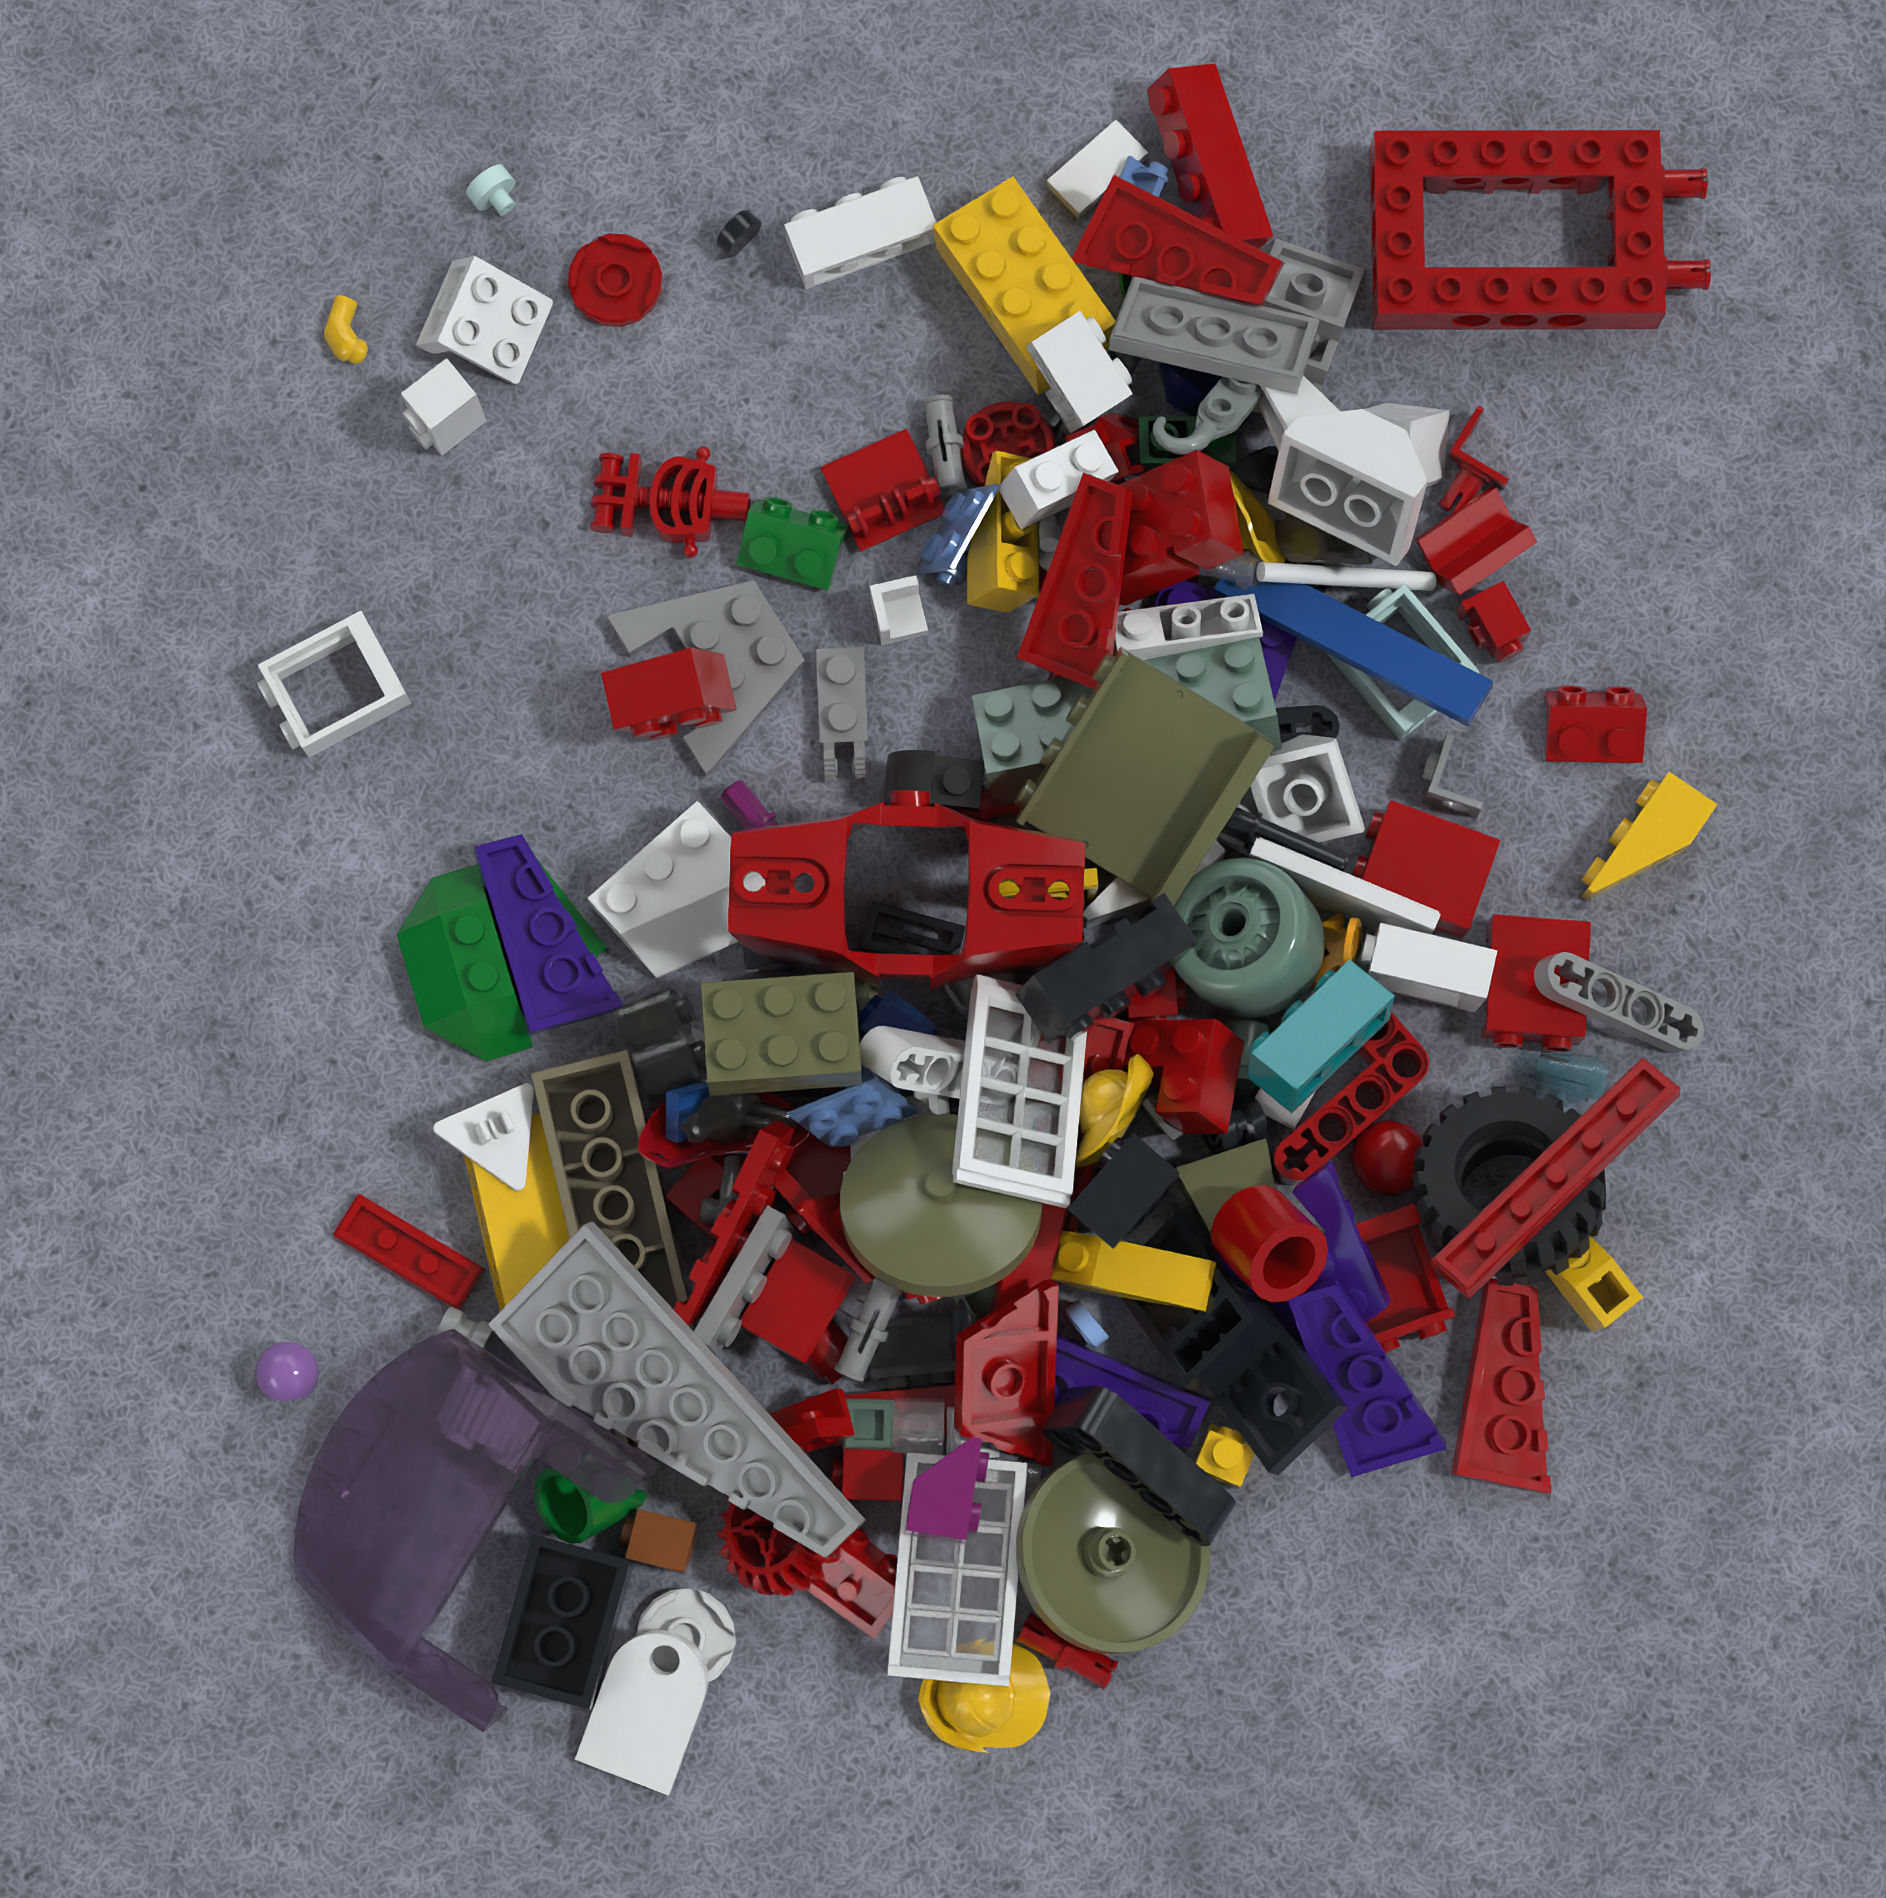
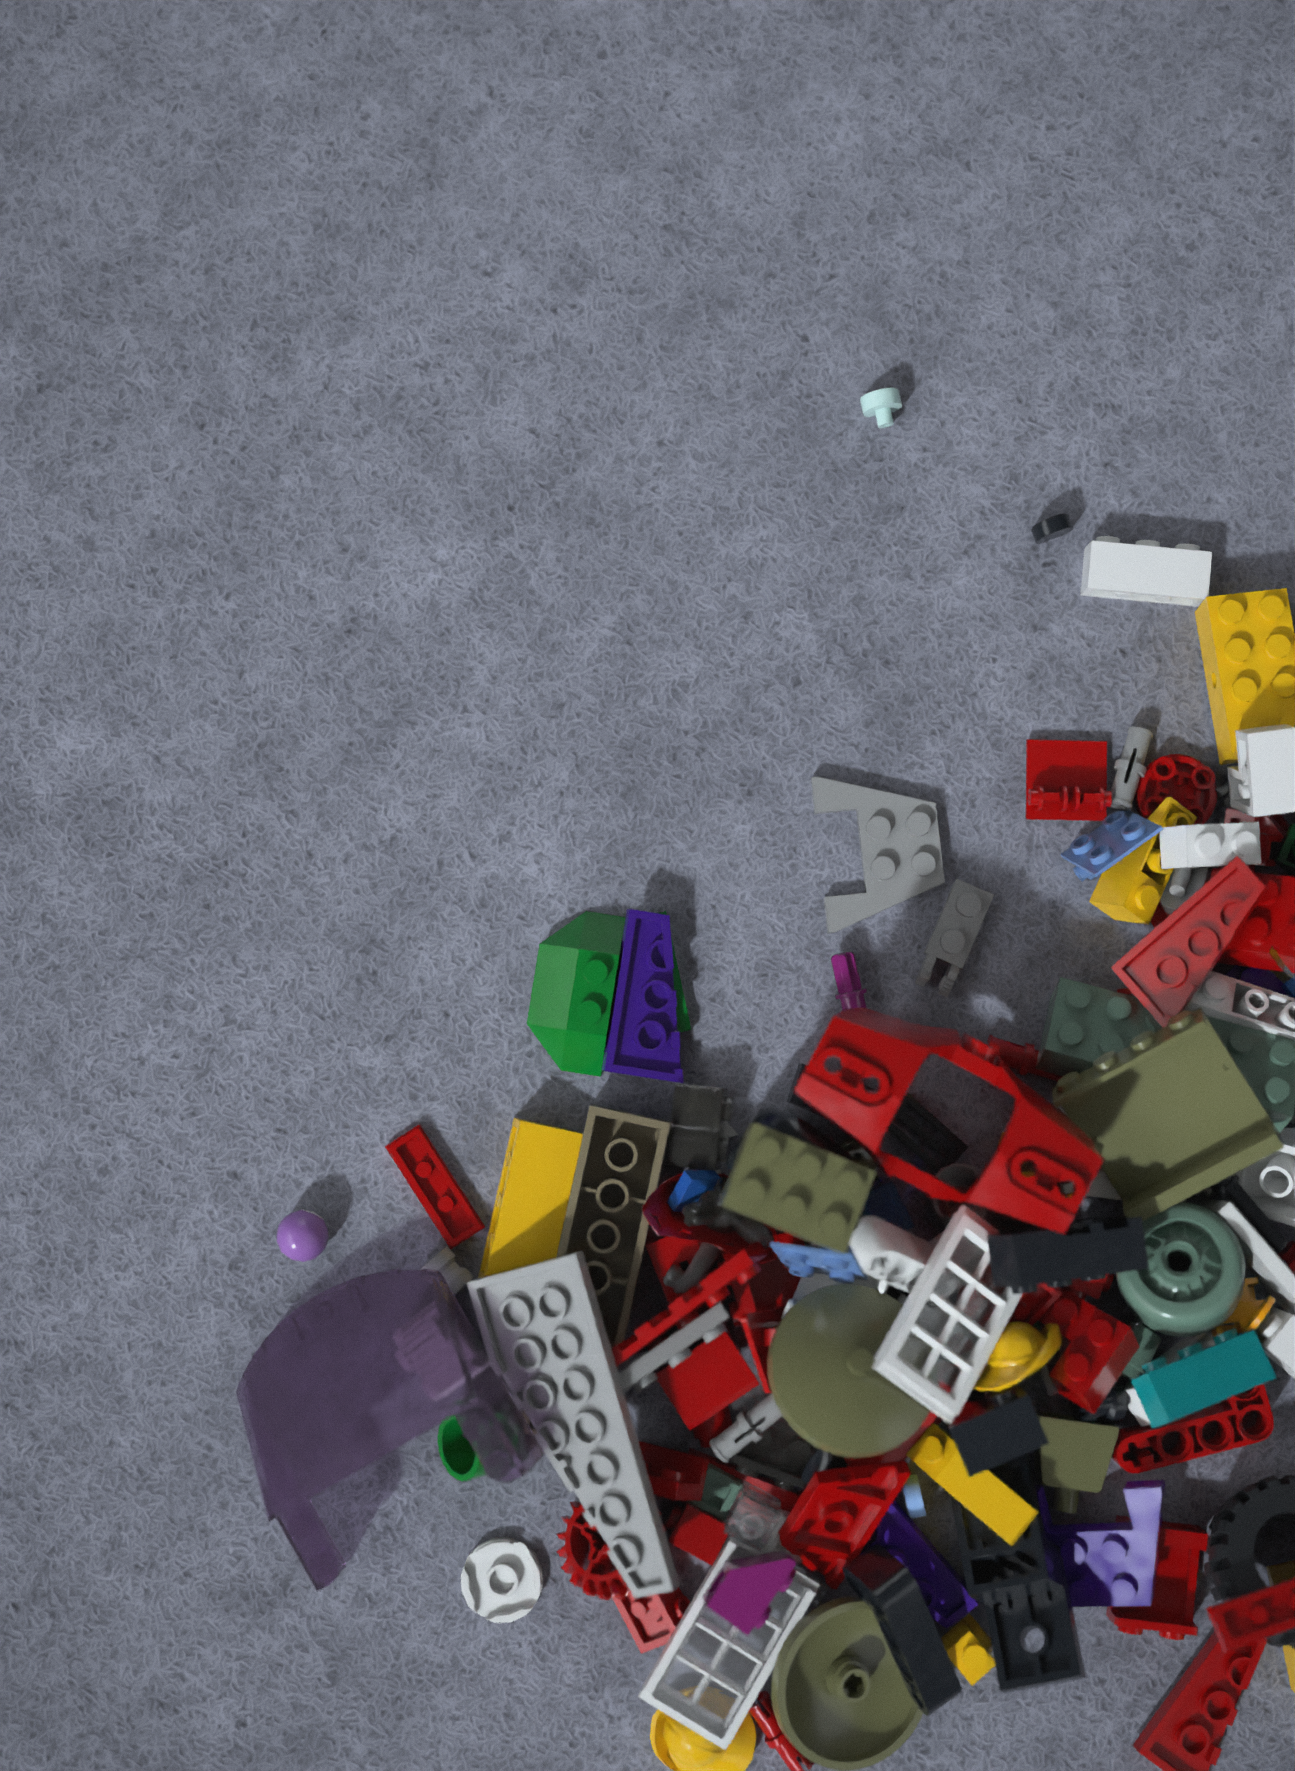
camera: 25 degrees right, 5 degrees up
(313, 649) = (537, 715): white window -> none
(340, 335) = (713, 460): yellow arm -> none
(442, 408) = (764, 558): white brick -> none
(486, 318) = (828, 501): white bracket -> none
(494, 1134) = (540, 1136): white piece -> none
(563, 1622) = (416, 1530): black brick -> none
(618, 297) = (935, 530): red tile -> none
(646, 1713) = (445, 1624): white tile -> none
(659, 1540) = (518, 1503): dark orange brick -> none
(669, 693) = (832, 862): red brick -> none
(674, 895) = (767, 1019): white wedge -> none
(714, 503) = (933, 728): red torso -> none
(792, 542) = (978, 787): green bracket -> none
(898, 610) = (1033, 880): white panel -> none
(949, 780) = (997, 1026): pearl dark grey brick -> none
(1269, 1243) = (1086, 1519): red piece -> none
(1383, 1414) = (1106, 1648): dark purple wing -> none
(1386, 1156) = (1204, 1483): red hair -> none

